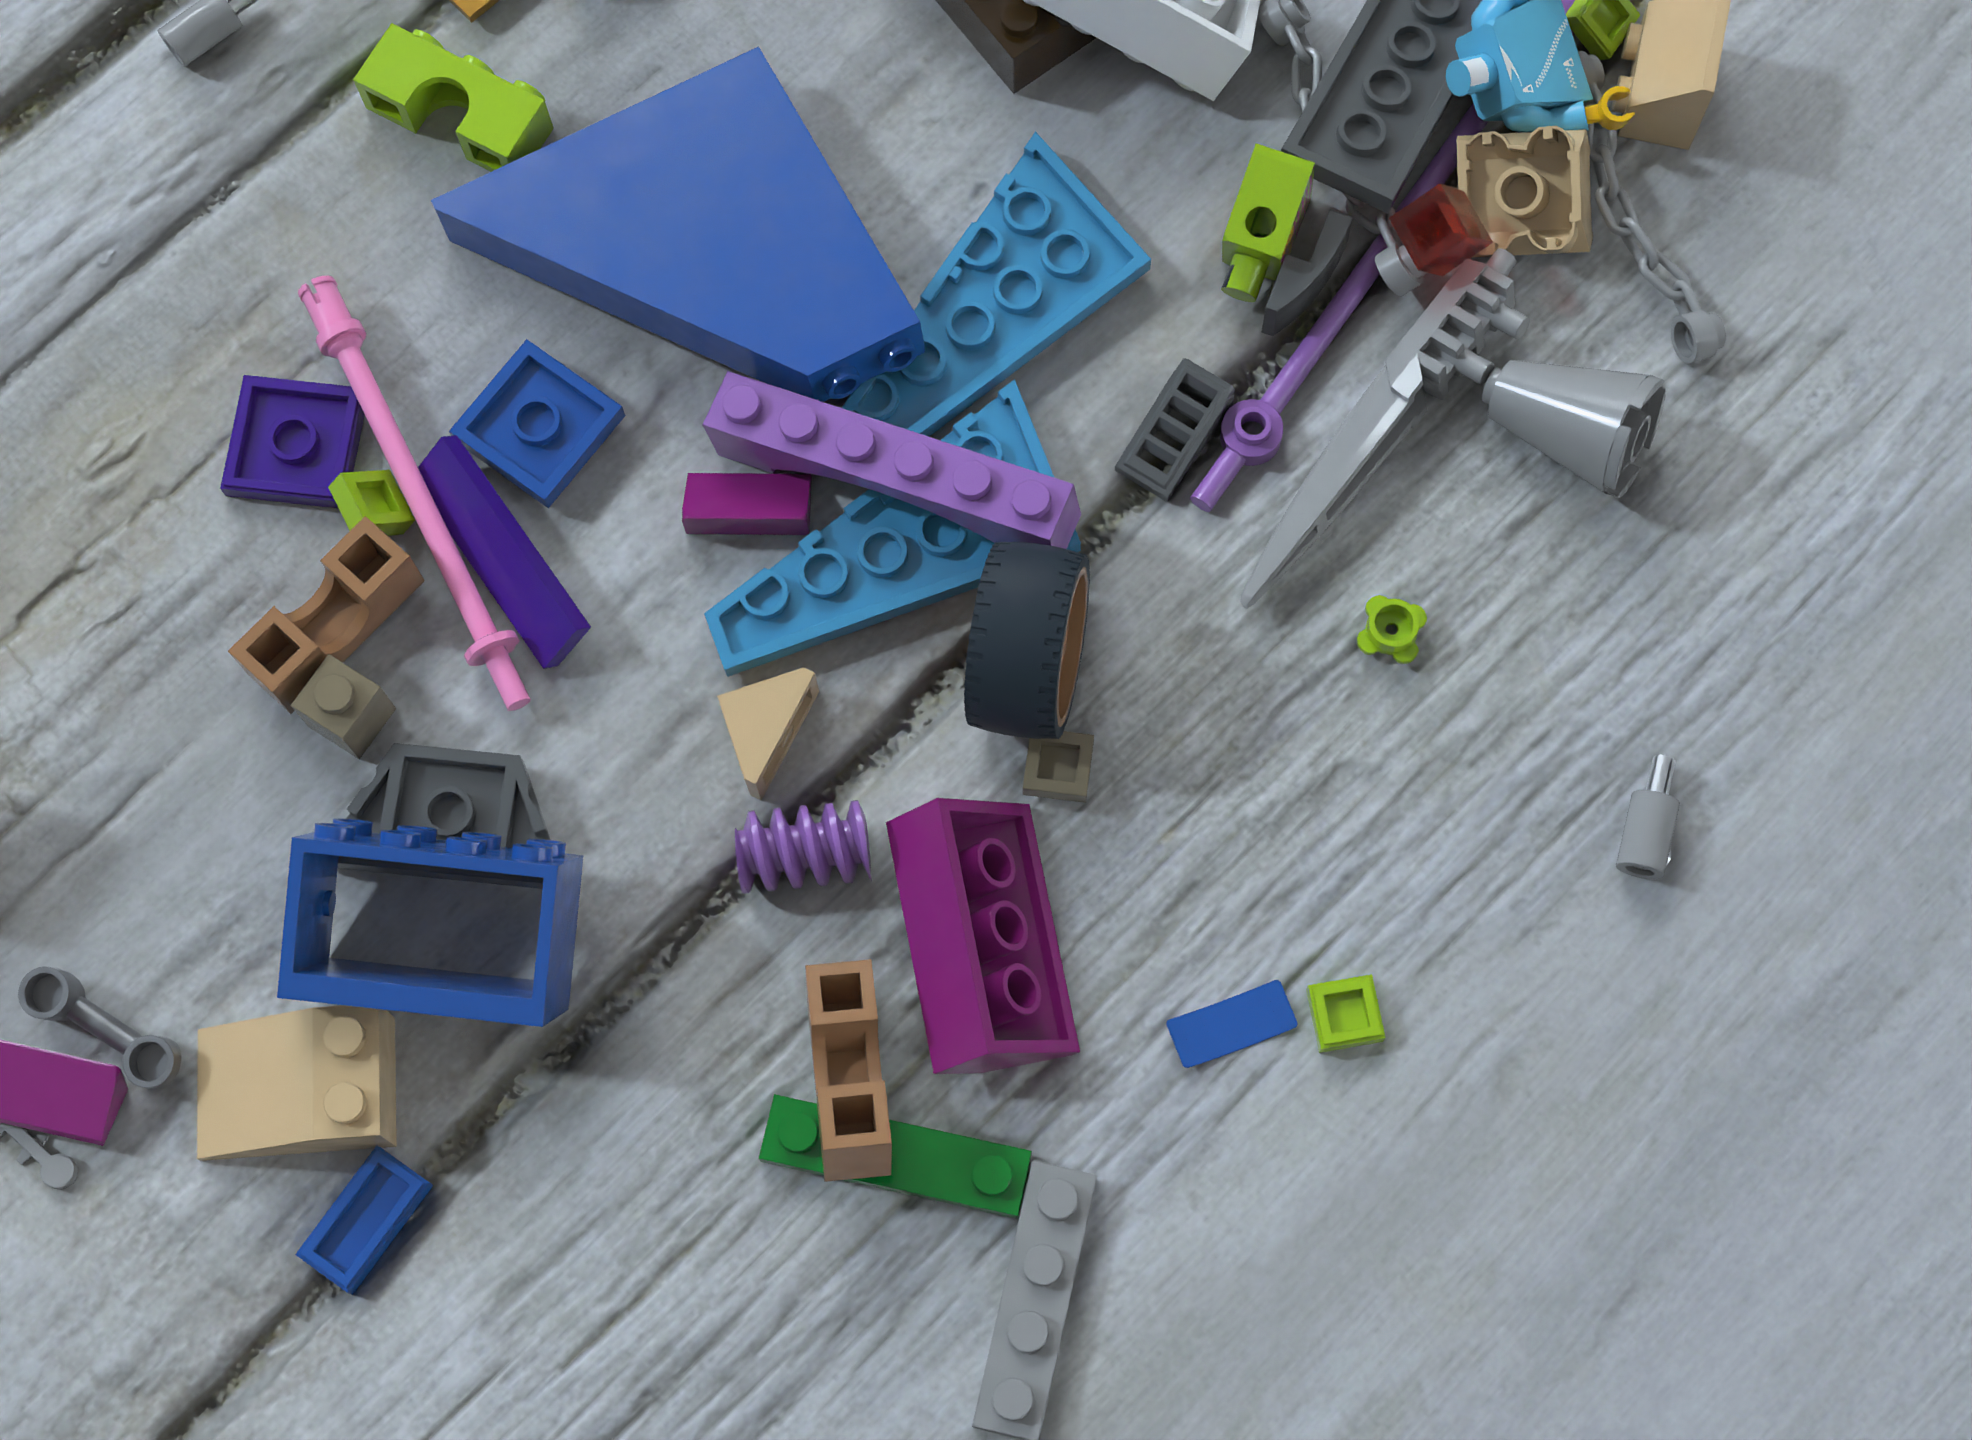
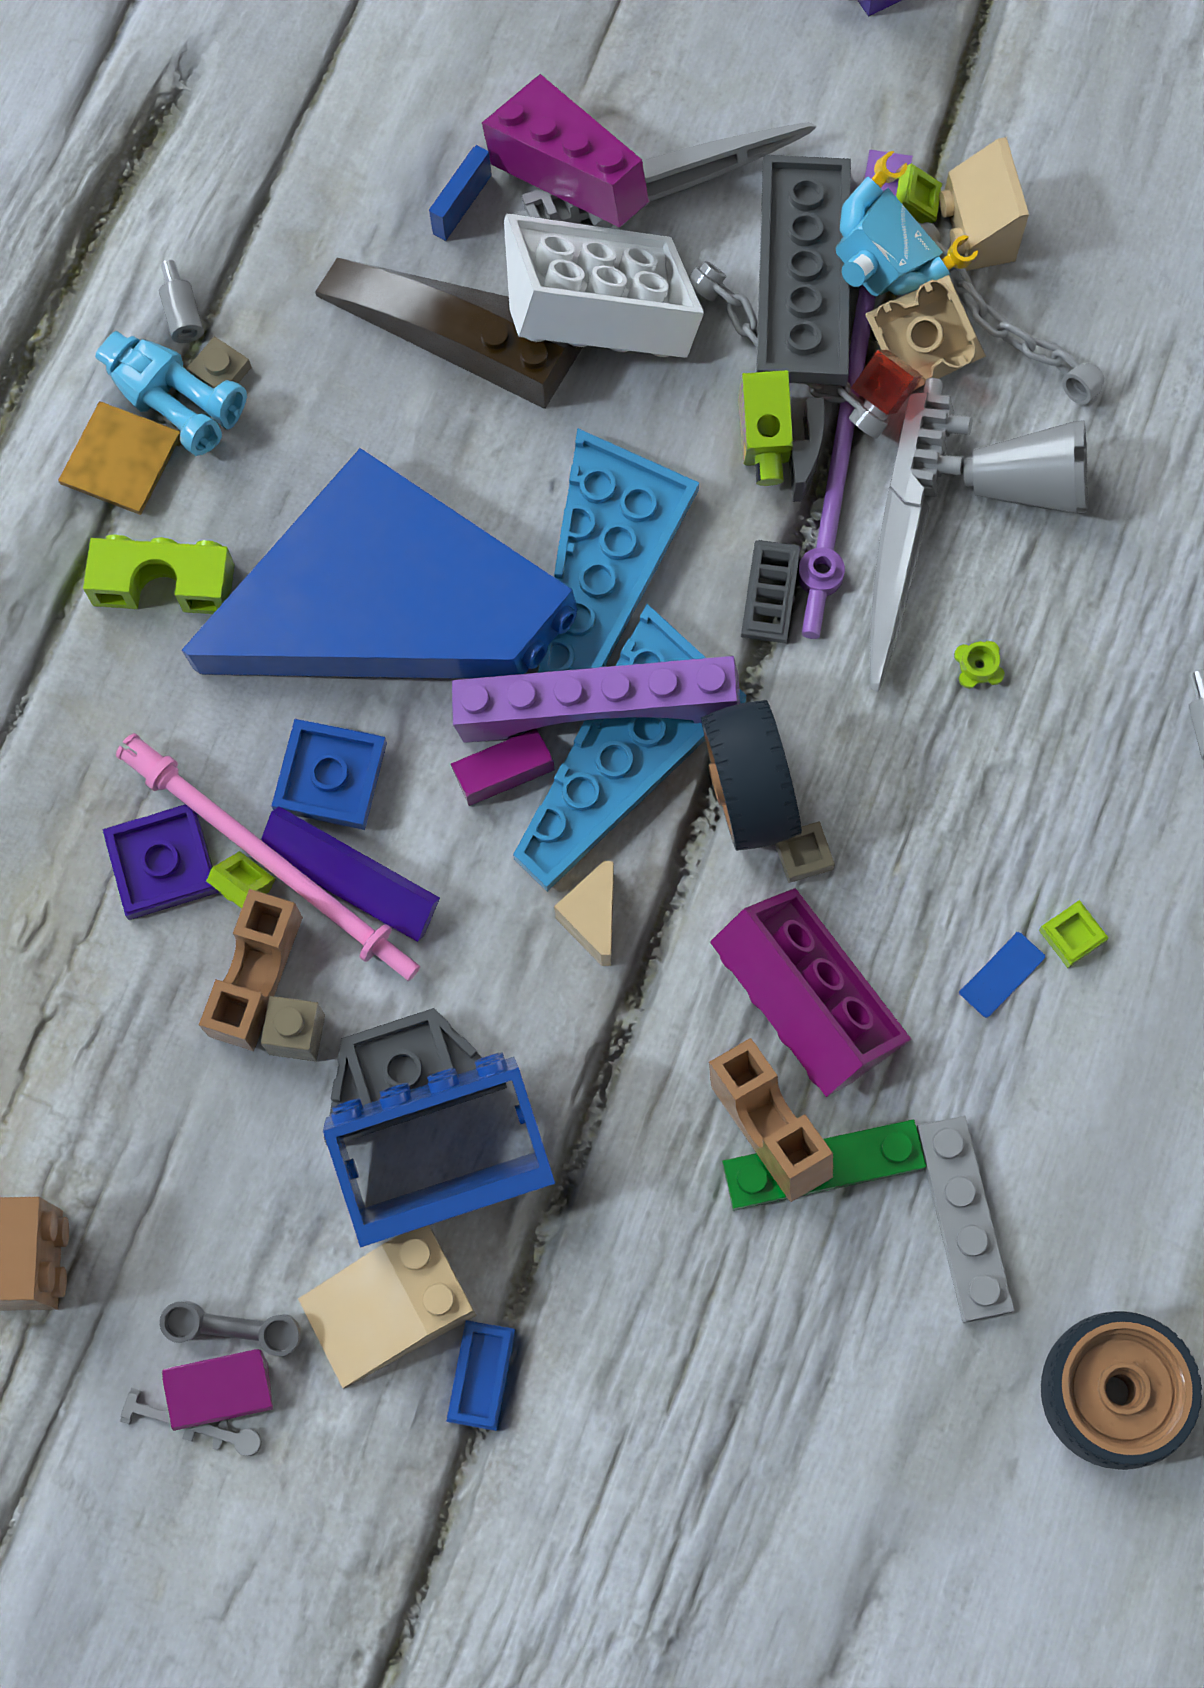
camera: 25 degrees left, 0 degrees up
(802, 847) = (661, 982): medium lavender piece -> none

